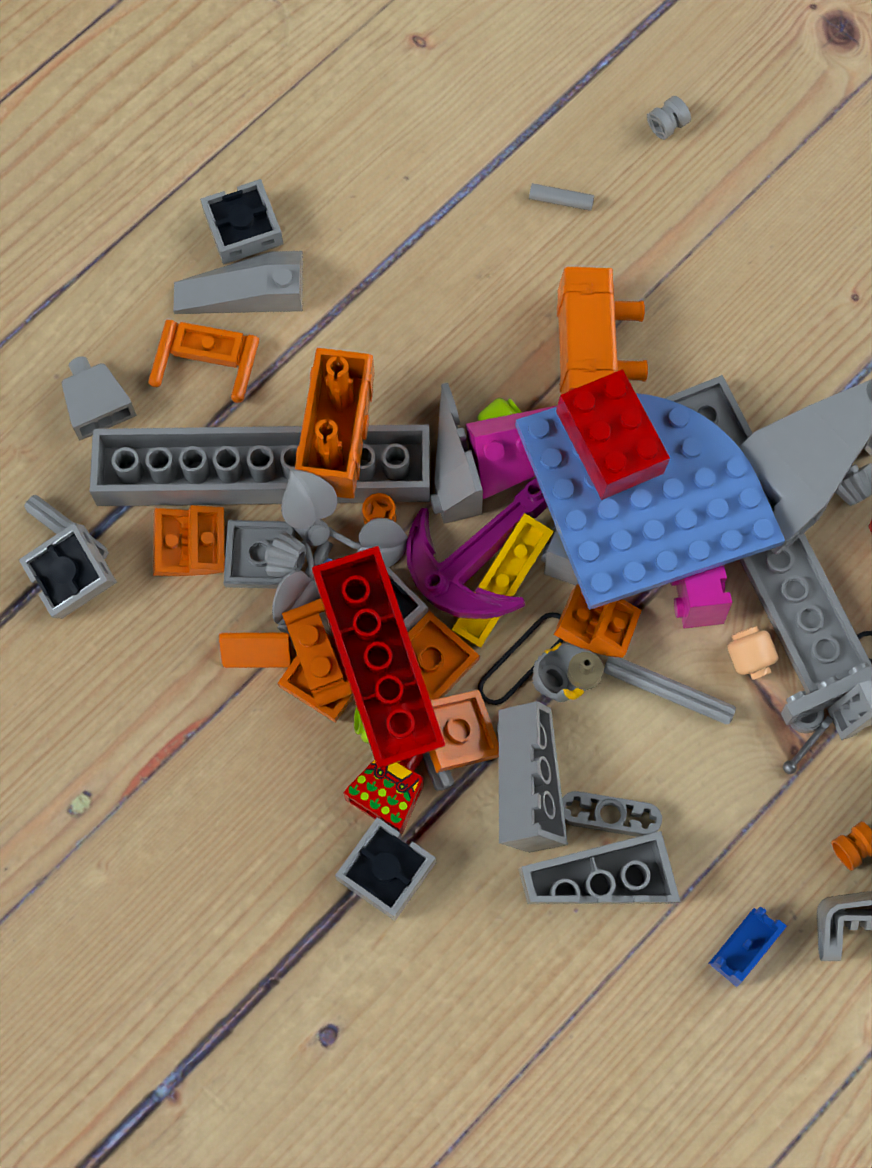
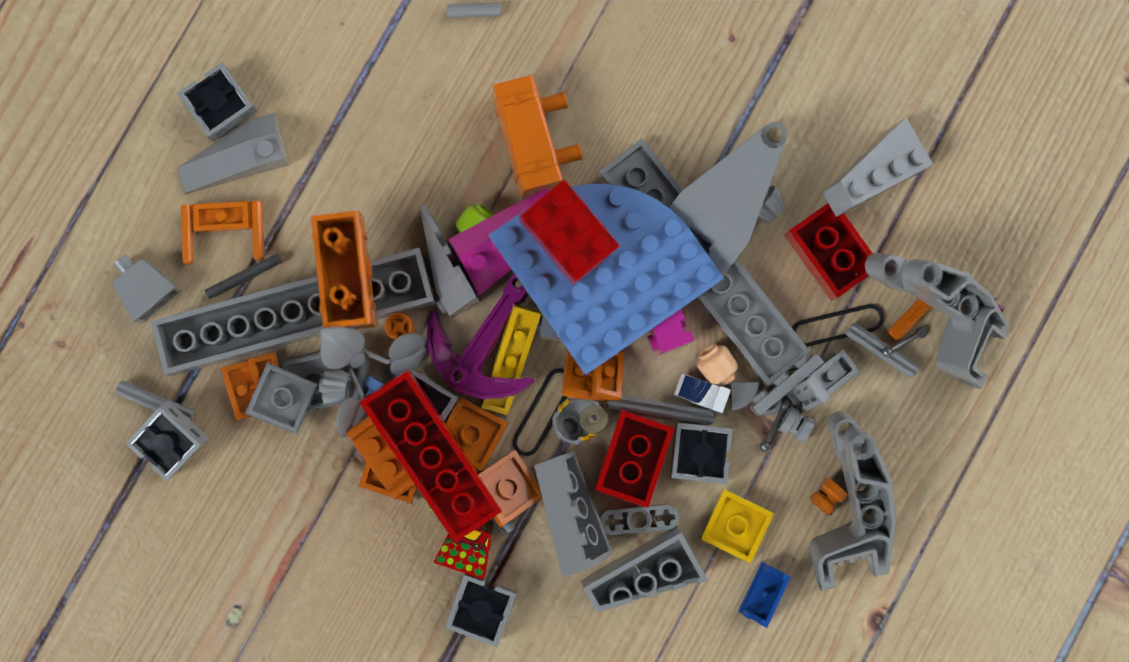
camera: 15 degrees left, 15 degrees up
(214, 415) = (243, 275): none -> flat silver bar
(217, 558) = (282, 398): none -> light grey tile
(255, 650) = (333, 463): orange slope -> none
(623, 733) = (634, 458): none -> red brick
(708, 750) = (701, 453): none -> black piece
(725, 681) = (702, 393): none -> leg
(732, 852) = (736, 526): none -> yellow plate
(774, 697) = (742, 394): none -> light grey tile
(829, 742) = (796, 424): none -> light grey wheel

